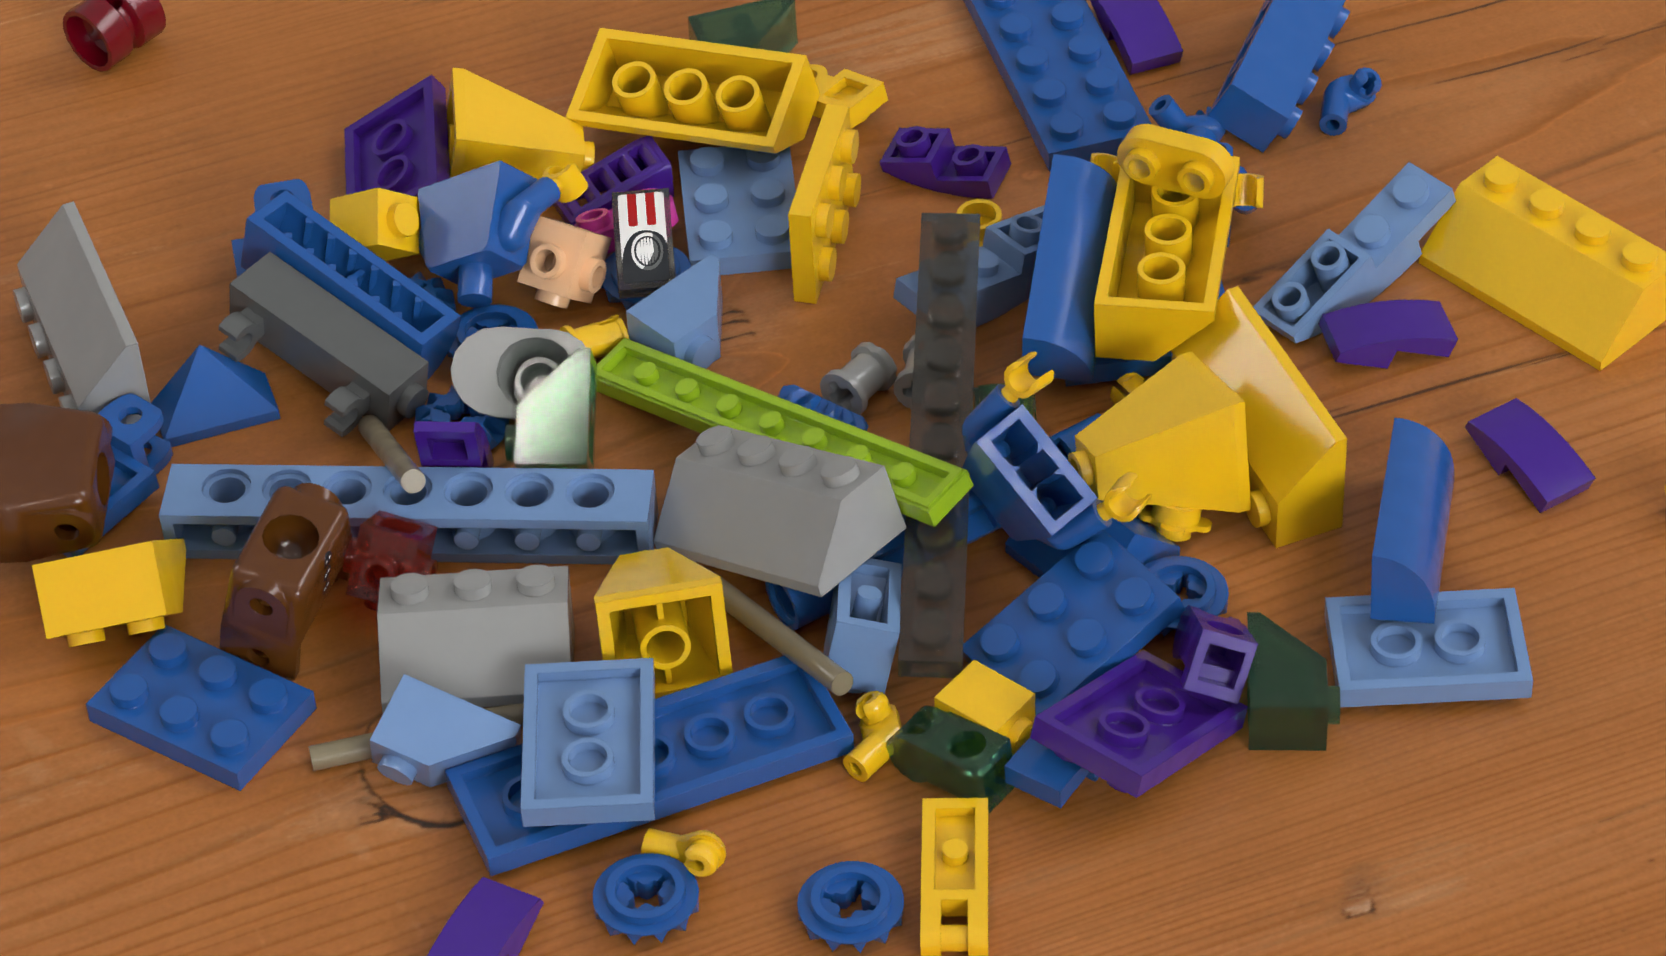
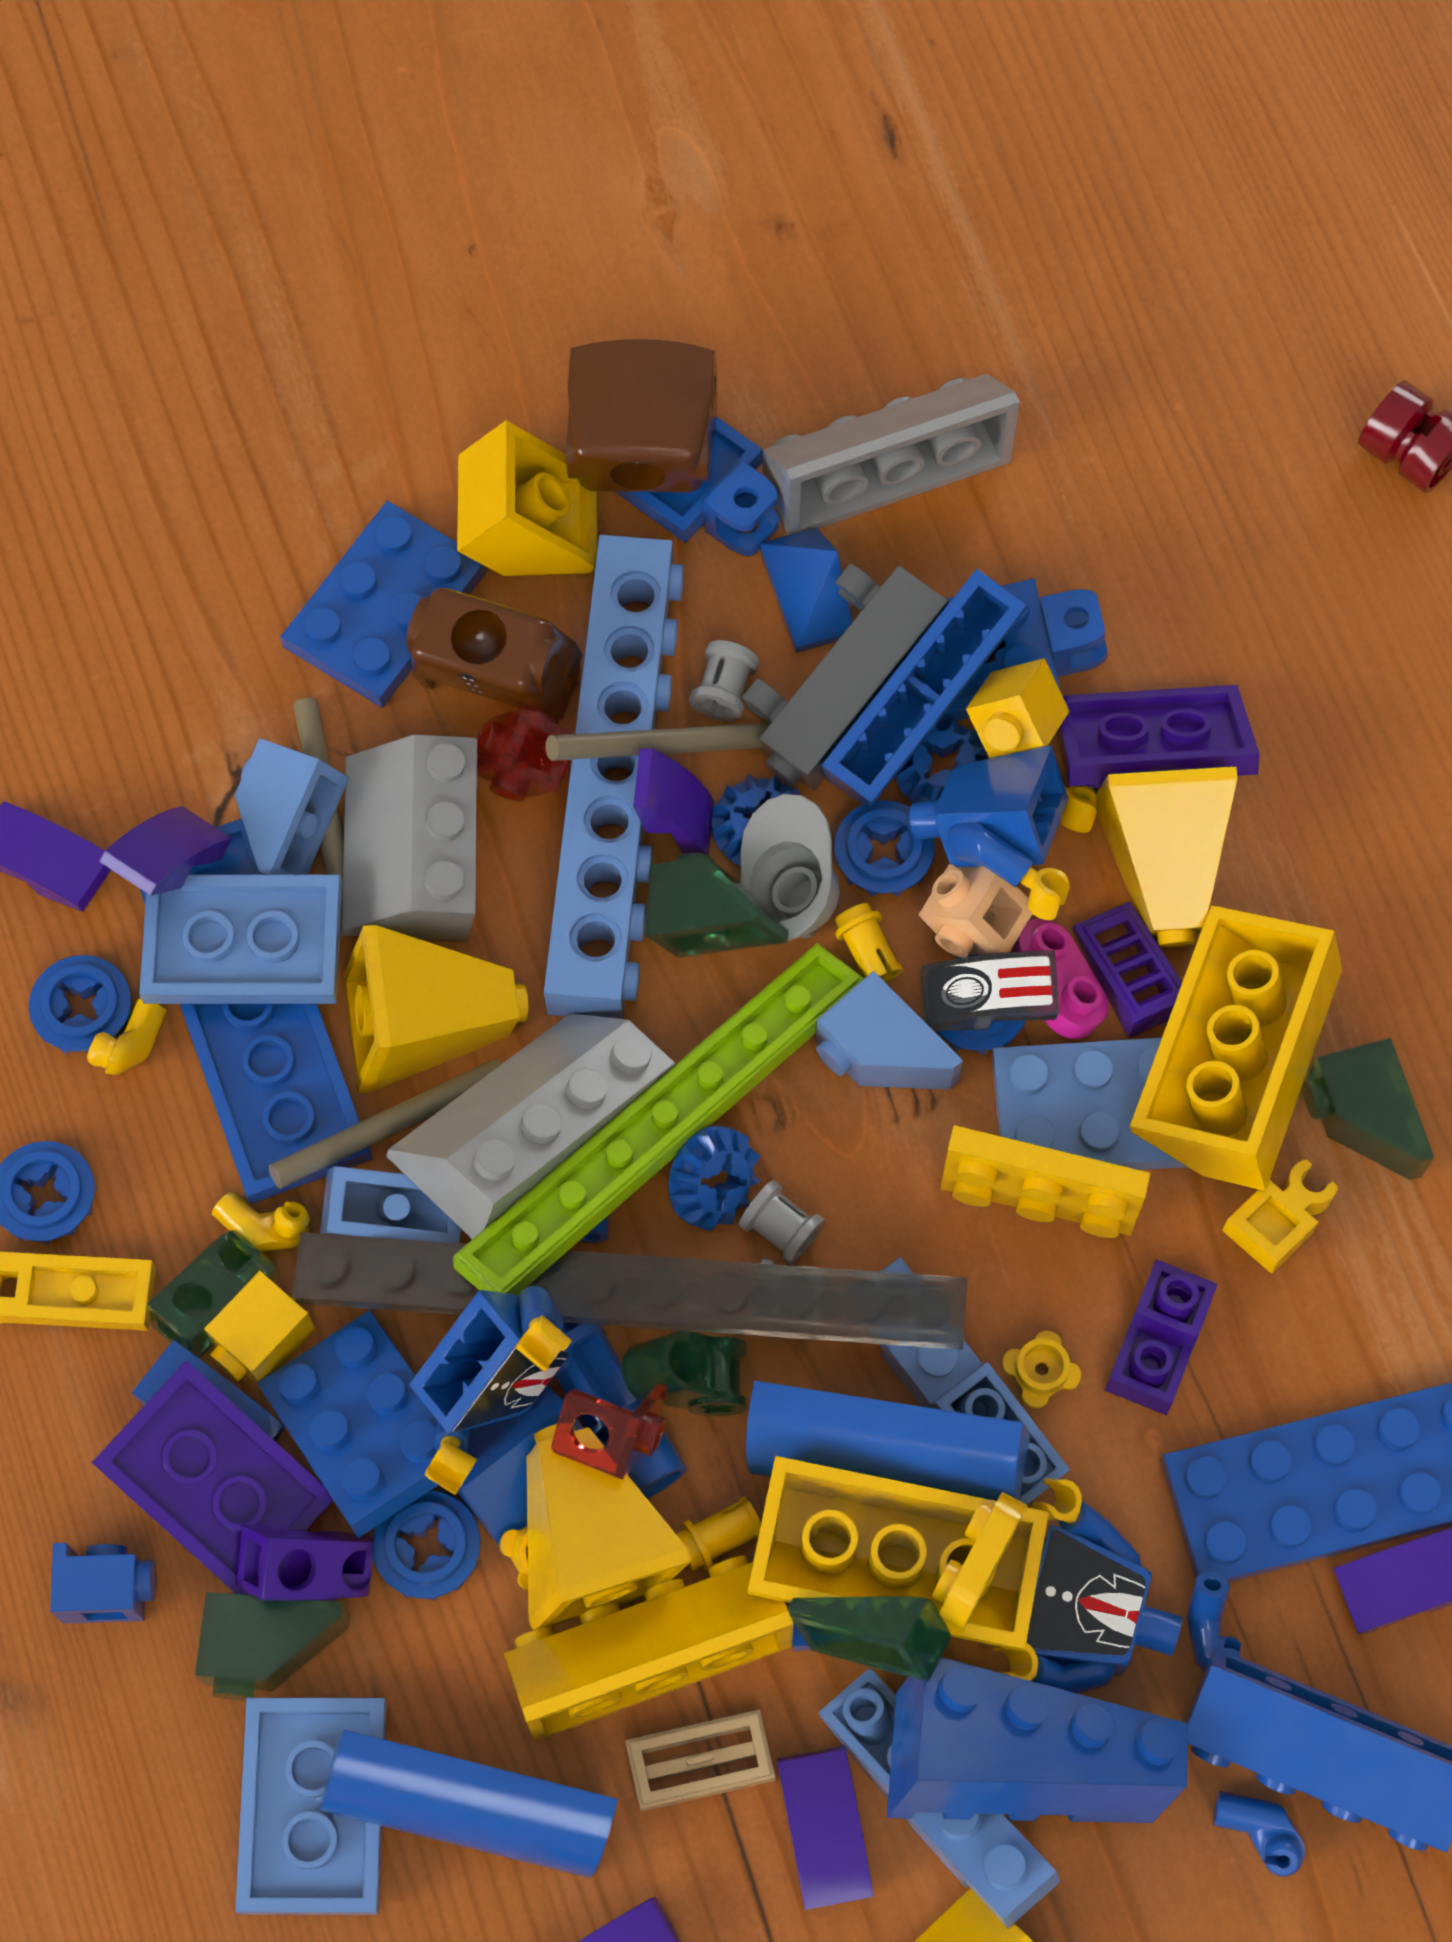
camera: 90 degrees right, 25 degrees up
(314, 443) = (724, 680): none -> light grey bush
(499, 784) = (165, 849): none -> dark purple slope
(1080, 396) = (629, 1432): none -> clear red bracket
(1242, 226) = (875, 1631): none -> clear green slope
(1247, 811) = (101, 1585): none -> blue brick
(1313, 184) = (1027, 1751): none -> blue wedge
(1357, 446) = (707, 1787): none -> tan tile

